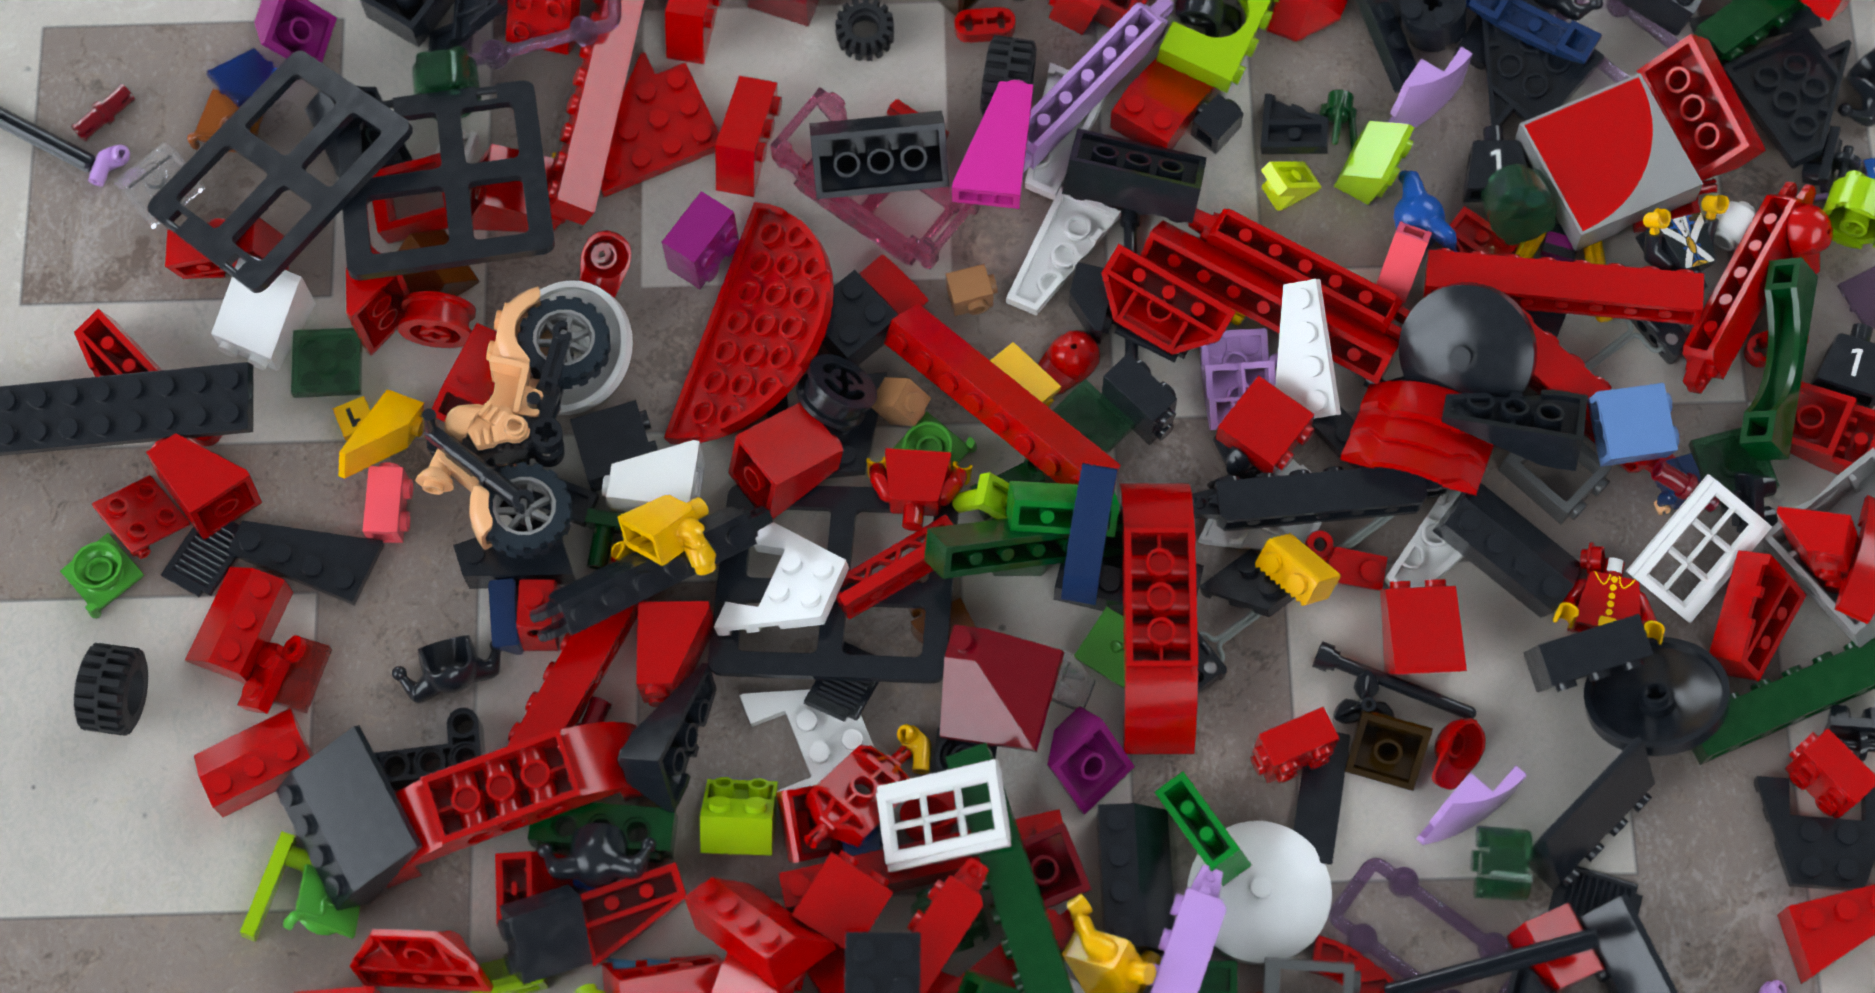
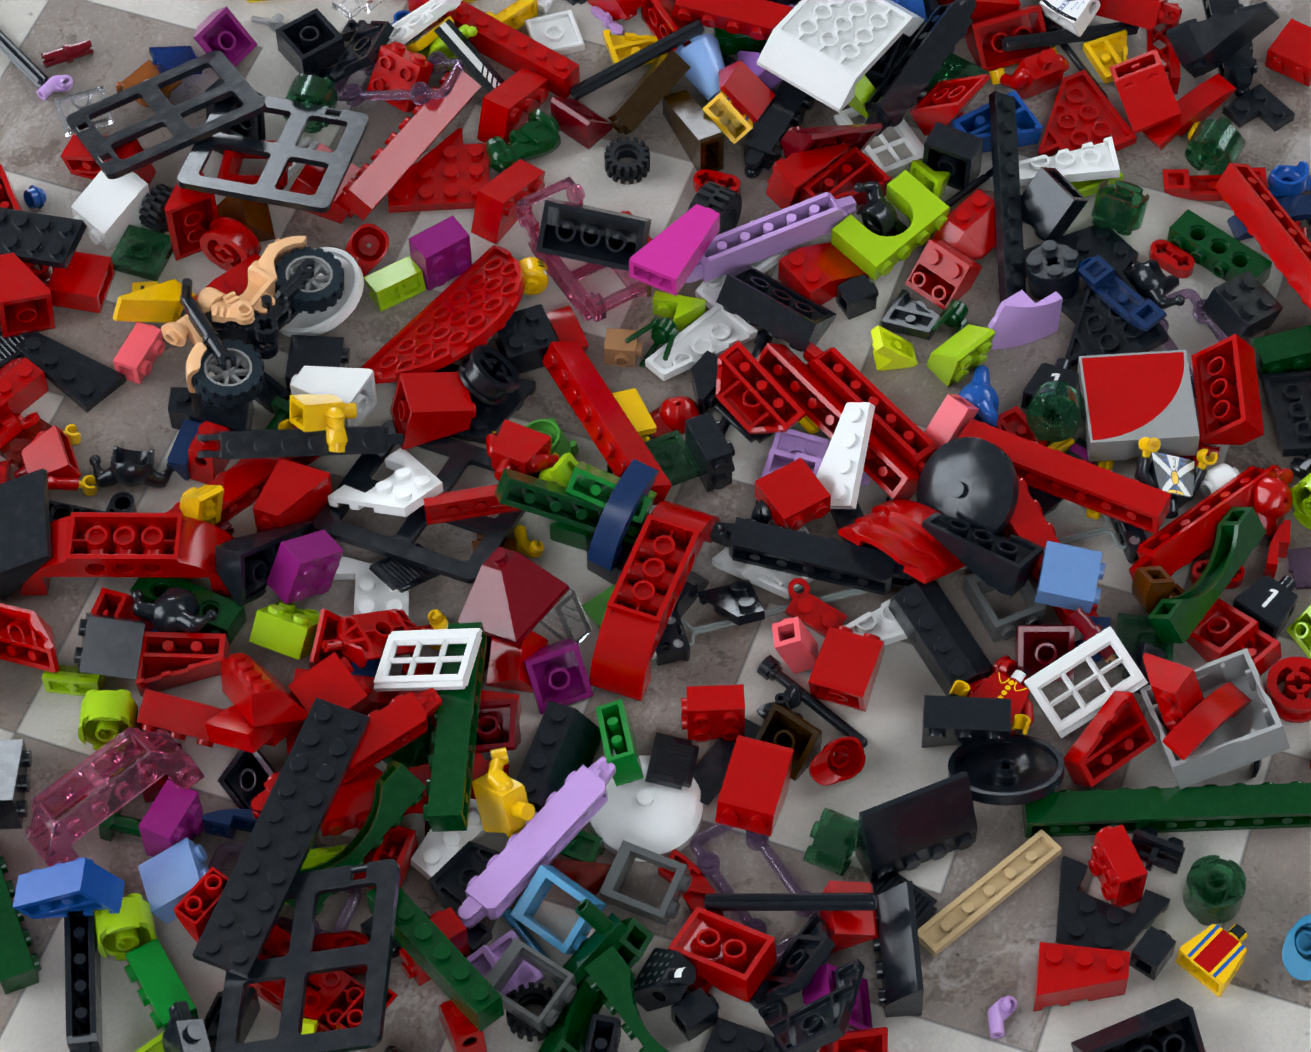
camera: 20 degrees right, 15 degrees down
(155, 331) = (34, 197): none -> blue plate
(278, 434) = (83, 283): none -> red brick
(325, 296) = (153, 210): none -> black tyre
(348, 694) = (54, 453): none -> torso
(570, 700) = (203, 503): none -> yellow slope
(658, 296) = (395, 283): none -> lime hinge
(730, 734) = (305, 566): none -> magenta brick
(740, 43) = (531, 141): none -> dark green animal
(825, 225) = (535, 275): none -> yellow head
(901, 401) = (534, 401): medium nougat brick -> none
(976, 599) = (529, 548): none -> yellow arm
(1010, 251) = (663, 331): none -> dark green plant
(1025, 771) = (507, 664): none -> red slope
(1026, 218) = (681, 308): none -> lime slope
(1267, 824) = (672, 762): none -> black window
(1297, 569) = (770, 594): yellow brick -> none
(1304, 58) = (942, 273): none -> red slope
(1350, 621) = (795, 644): none -> coral brick
(1384, 828) = (754, 785): none -> red slope
(1469, 806) = (828, 790): lavender slope -> none
(1629, 521) = (1041, 645): none -> dark red slope
(1696, 853) = (988, 892): none -> tan plate
(1726, 398) = (1152, 585): none -> reddish brown brick
(1831, 283) = (1277, 548): none -> red slope

